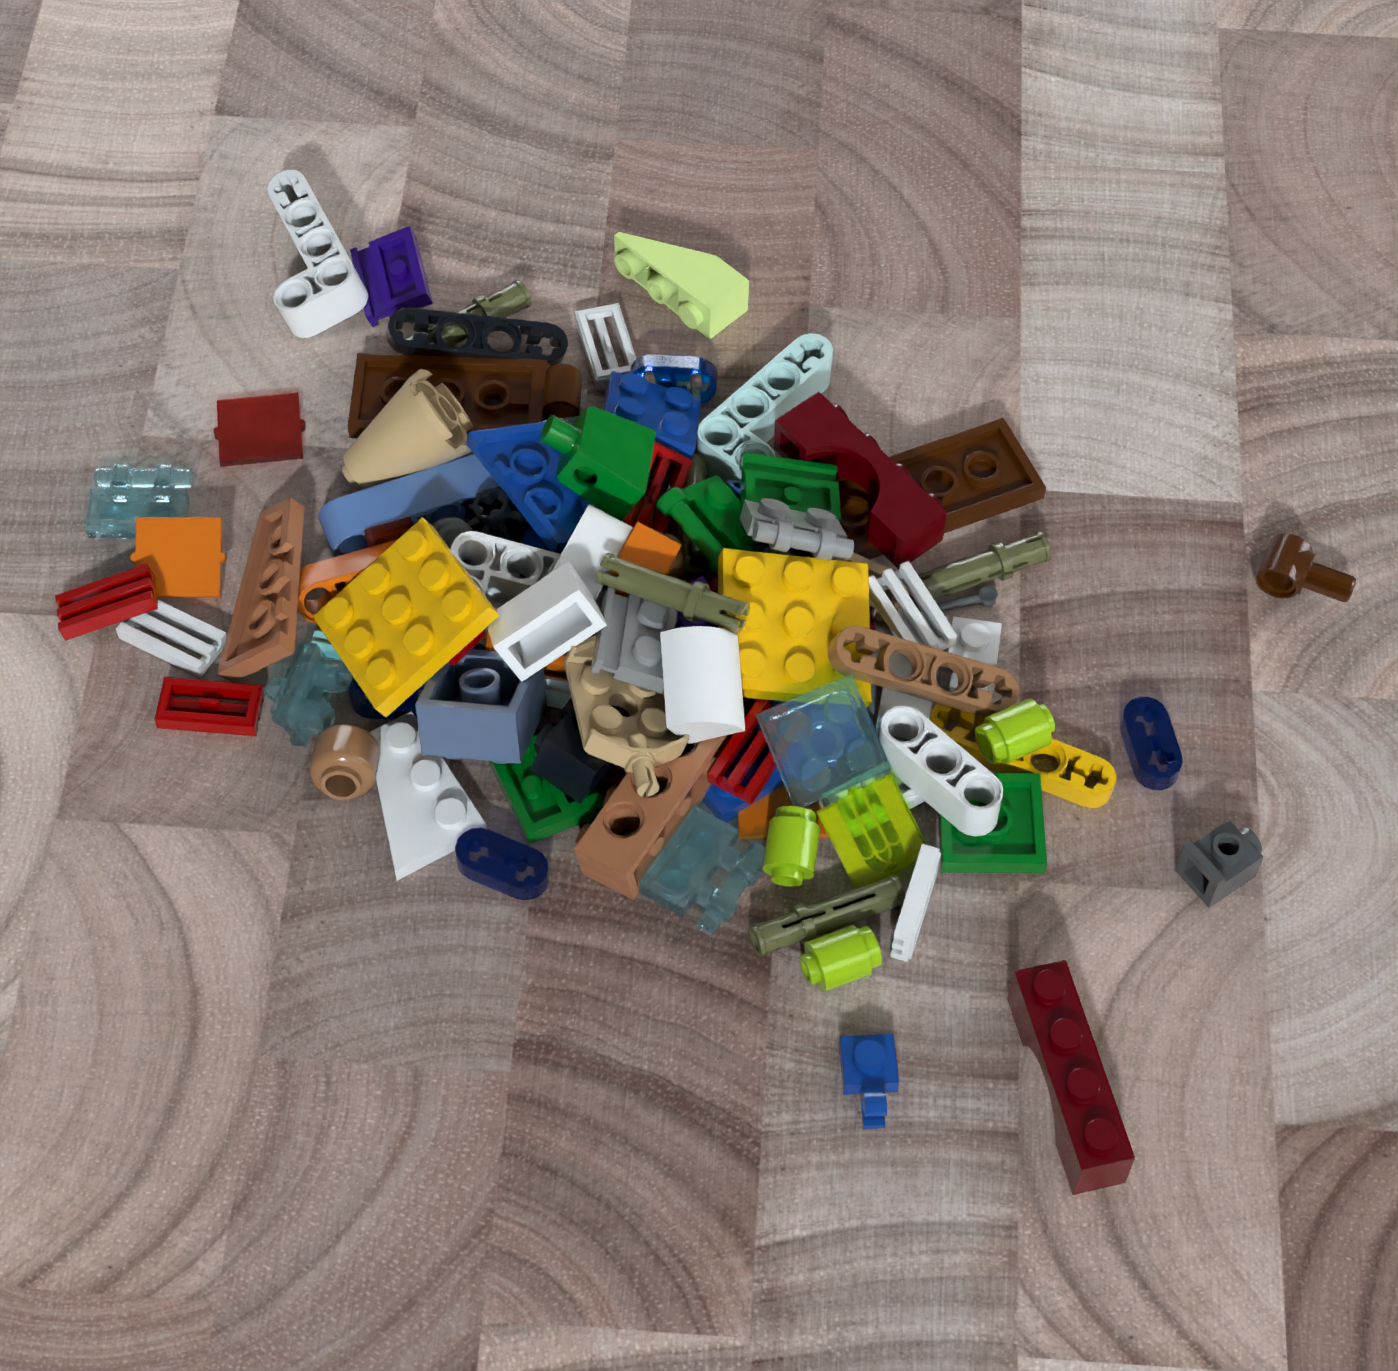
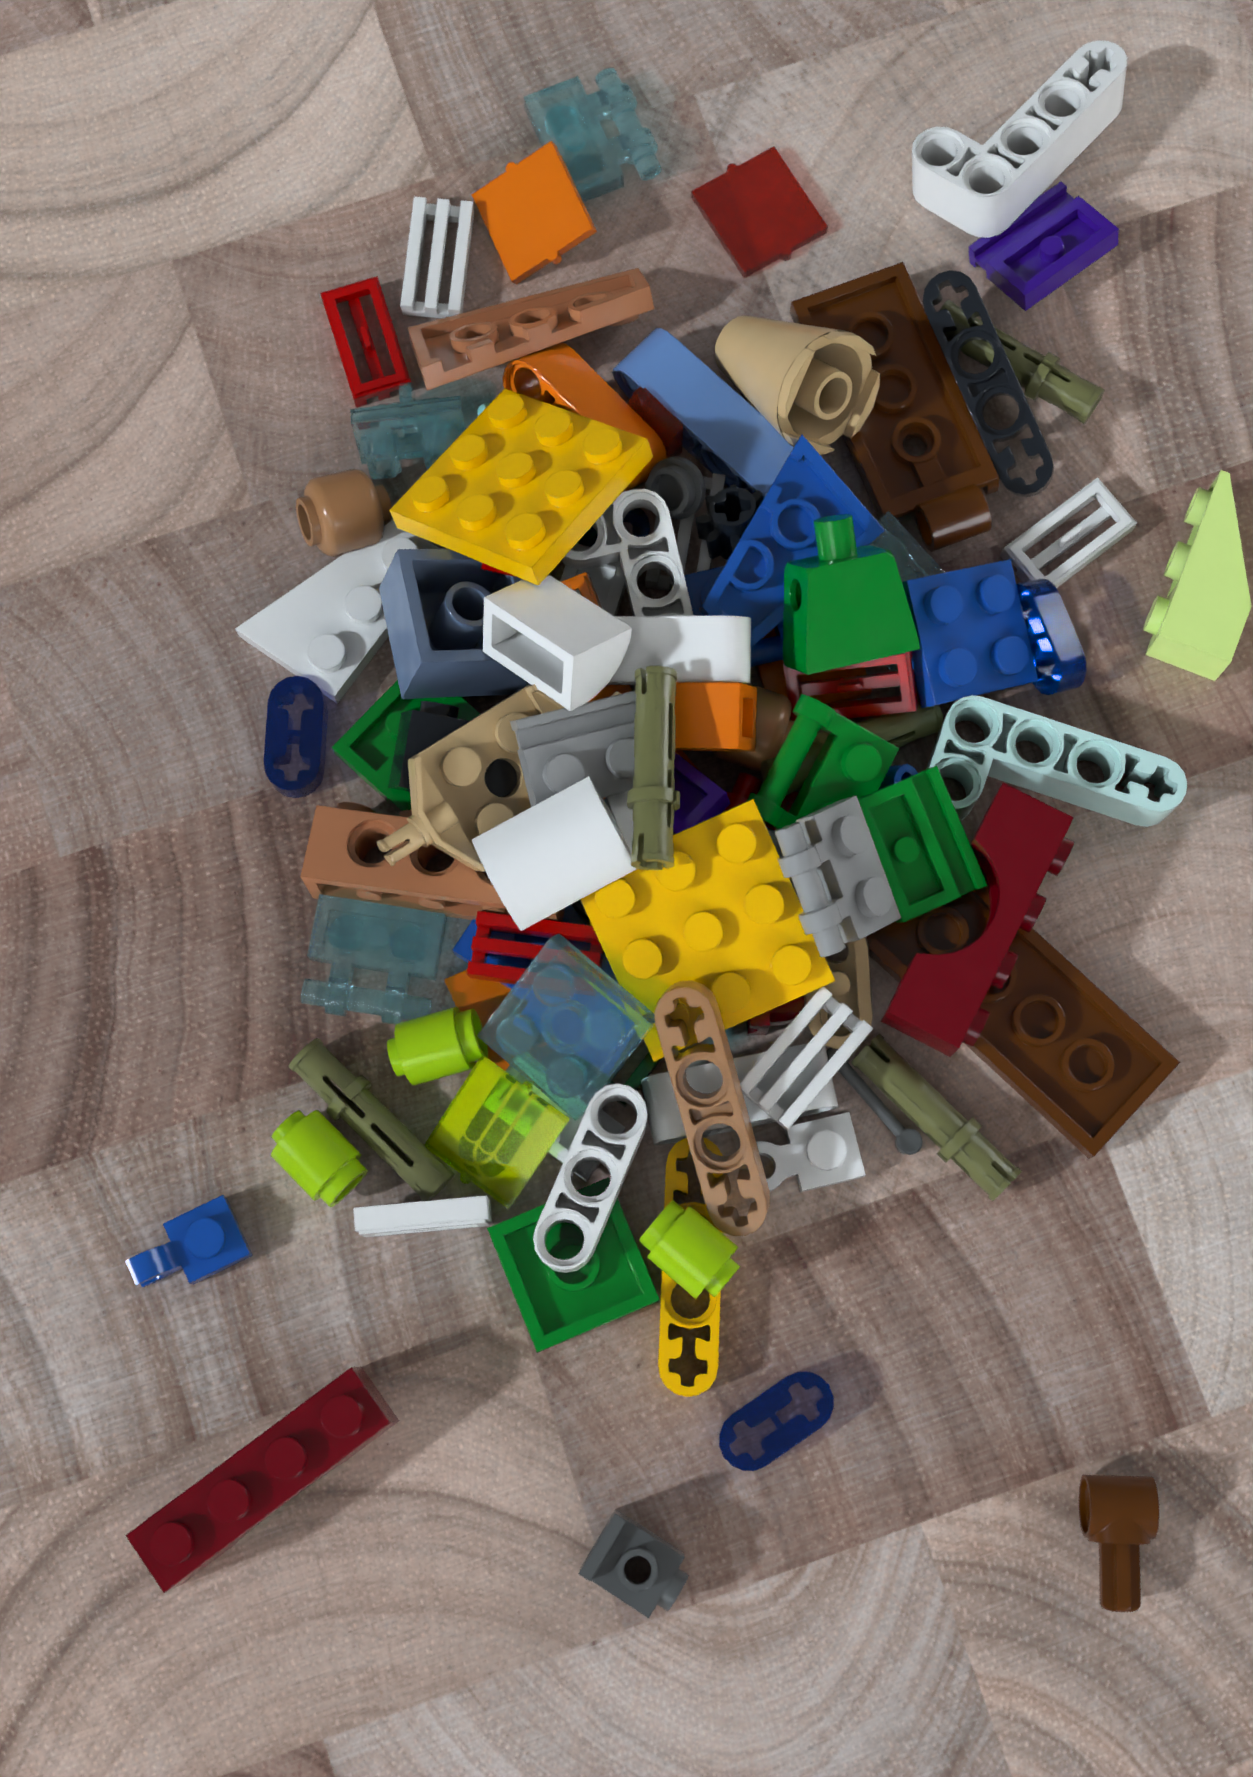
camera: 70 degrees right, 20 degrees up
(106, 602) = (450, 165): red tile -> none

